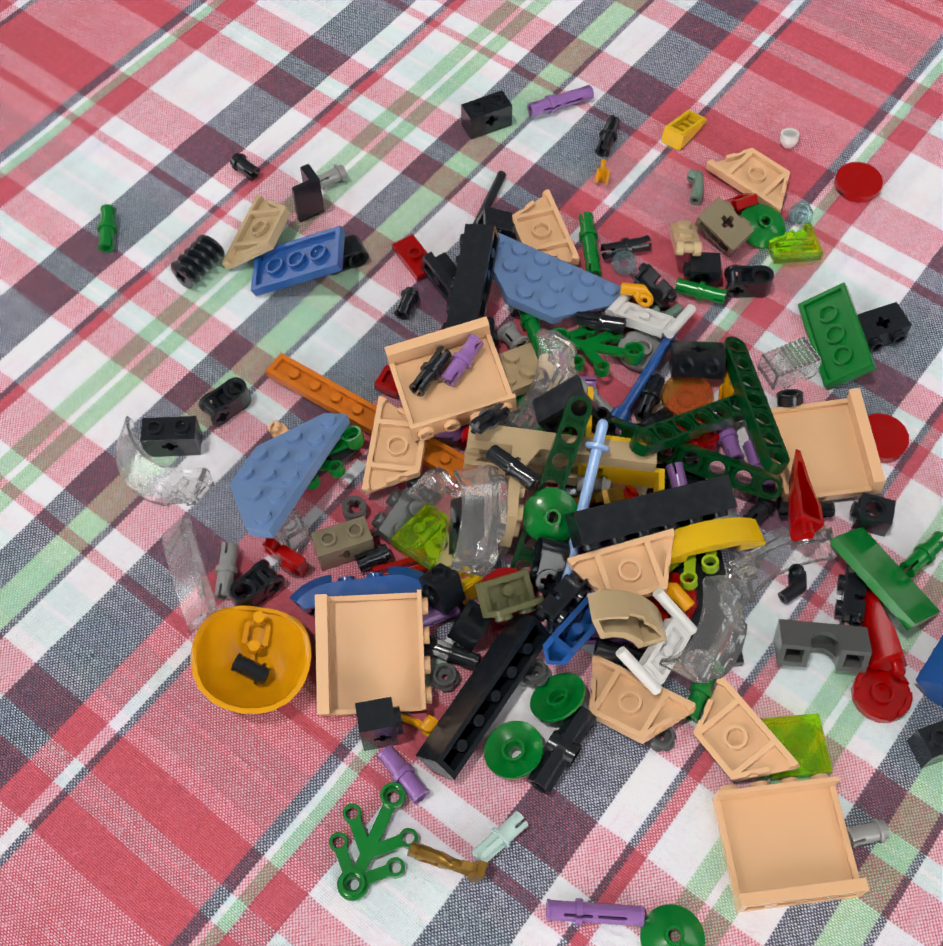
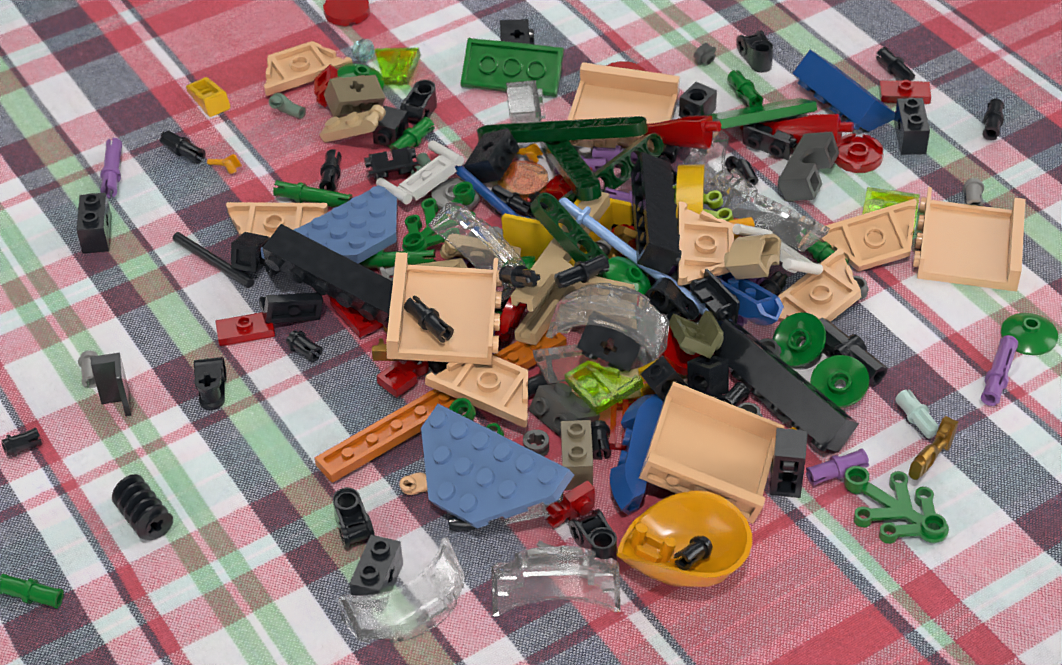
camera: 70 degrees left, 15 degrees down
(257, 232) = (132, 443): tan wing -> none
(299, 261) = (206, 410): blue plate -> none
(462, 360) = (429, 291): medium lavender pin -> none
(551, 404) = (517, 234): black panel -> none
(601, 321) = (415, 205): black axle -> none
(629, 256) = (349, 176): clear light blue plate -> none
(639, 292) = (397, 170): light orange arm -> none
(789, 137) = (269, 31): white hinge -> none
(789, 397) = (559, 113): black tile -> none

